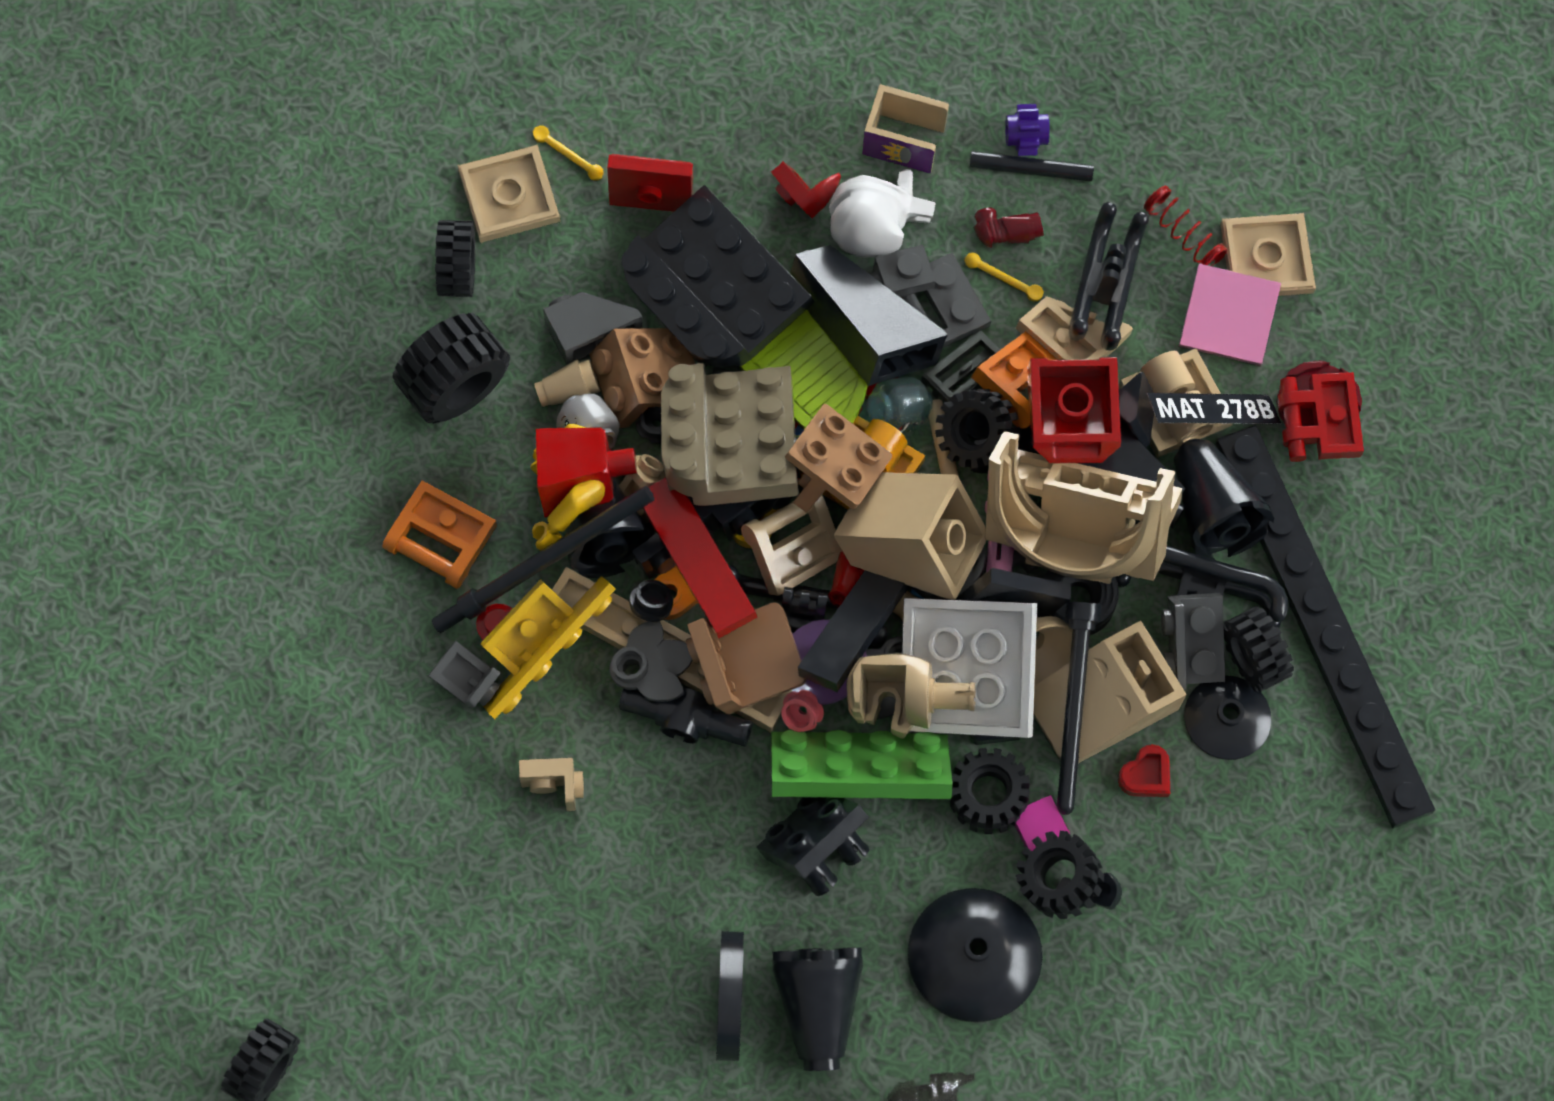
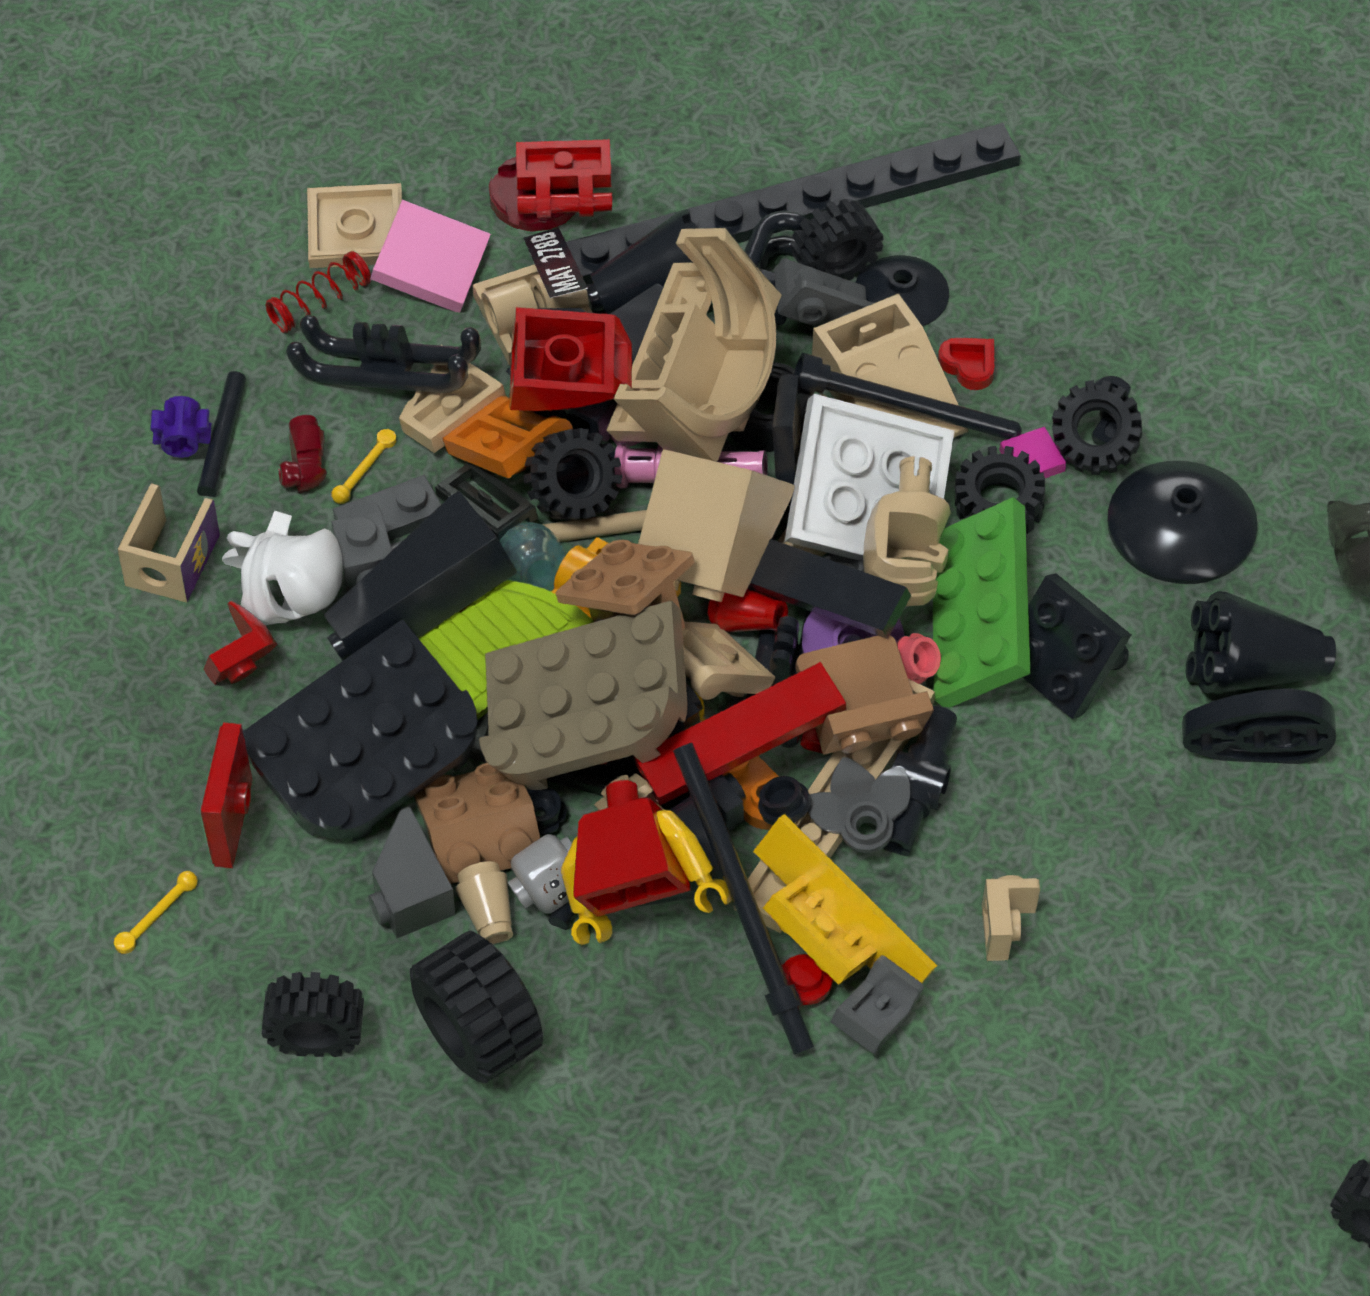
camera: 85 degrees left, 15 degrees down
(446, 522) = (671, 1033): orange plate -> none
(508, 193) = (208, 976): tan tile -> none

